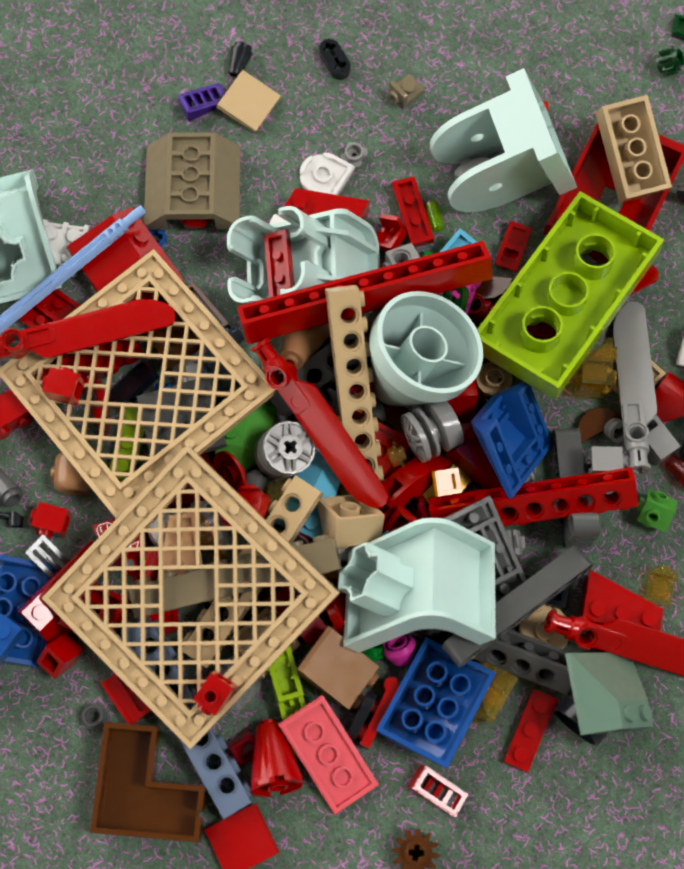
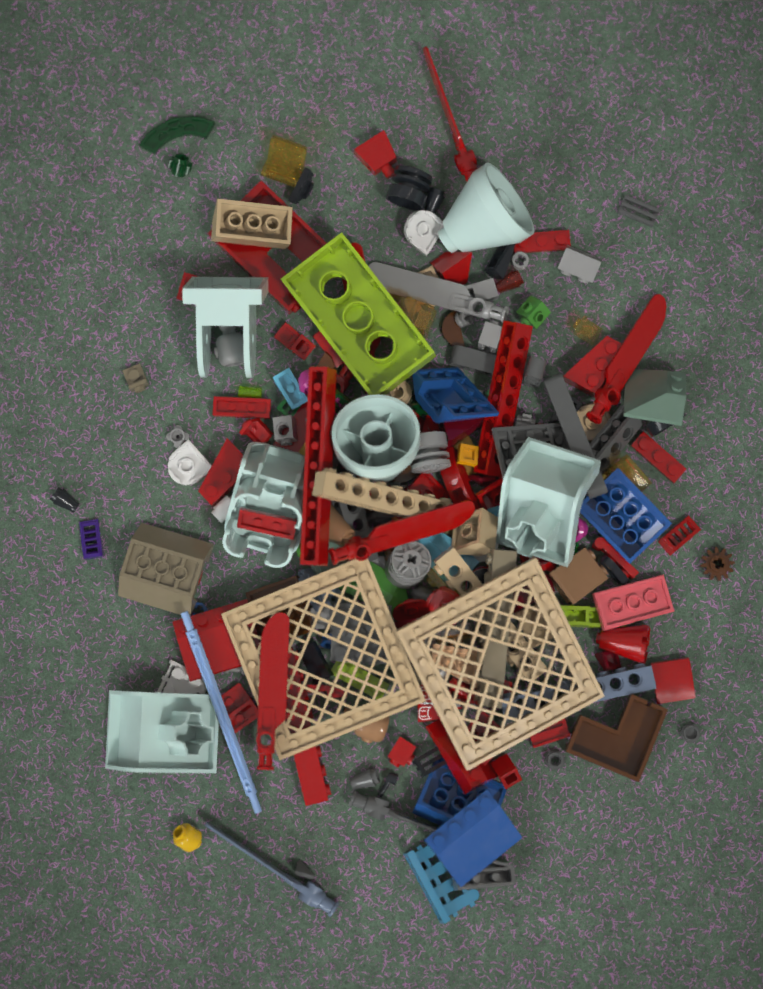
camera: 70 degrees left, 10 degrees up
(63, 385) = (312, 712): red brick -> none
(214, 693) = (576, 666): red brick -> none
(248, 101) = (105, 504): tan tile -> none
(330, 61) = (90, 428): black beam -> none
(397, 455) = (436, 483): clear yellow plate -> none

